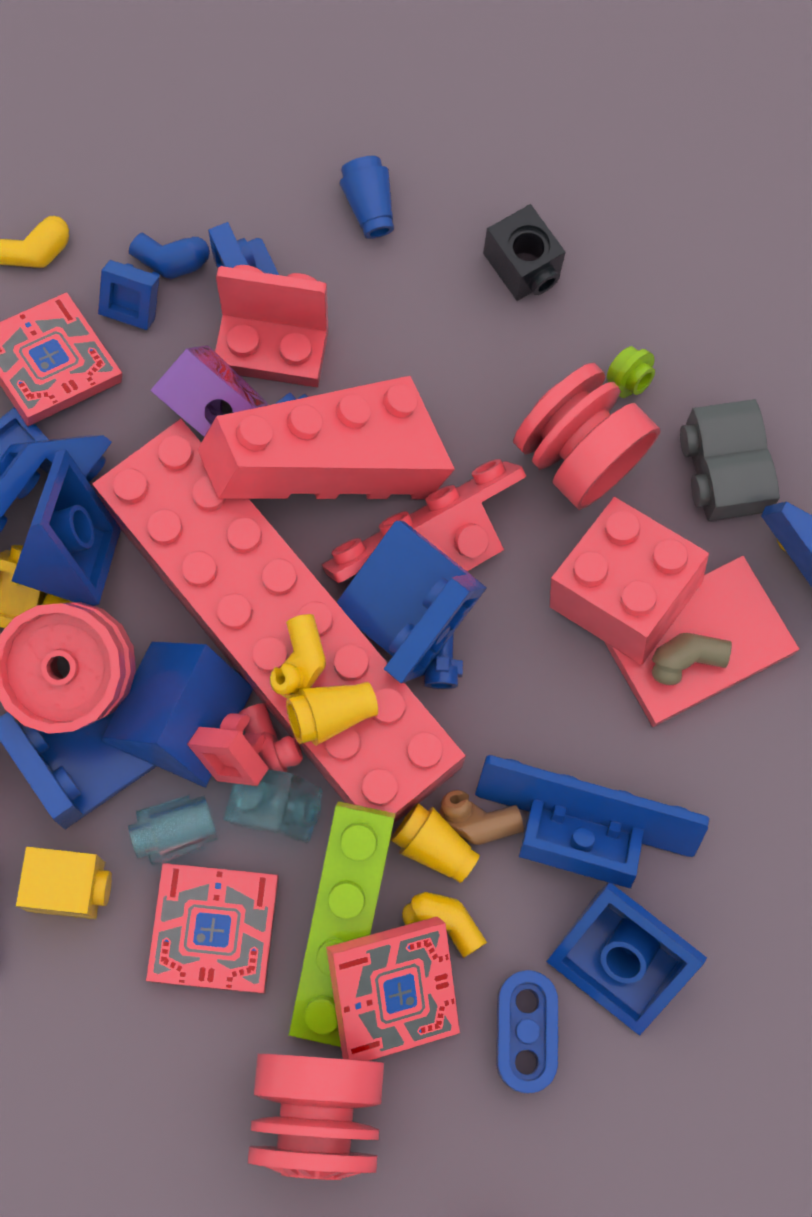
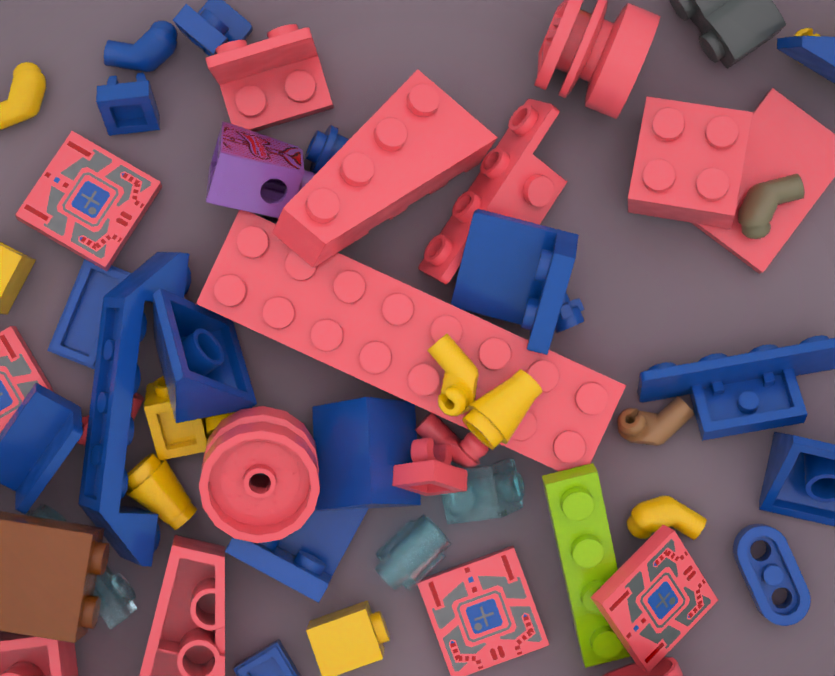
camera: 25 degrees left, 15 degrees up
(434, 843) = (628, 461): yellow cone -> none

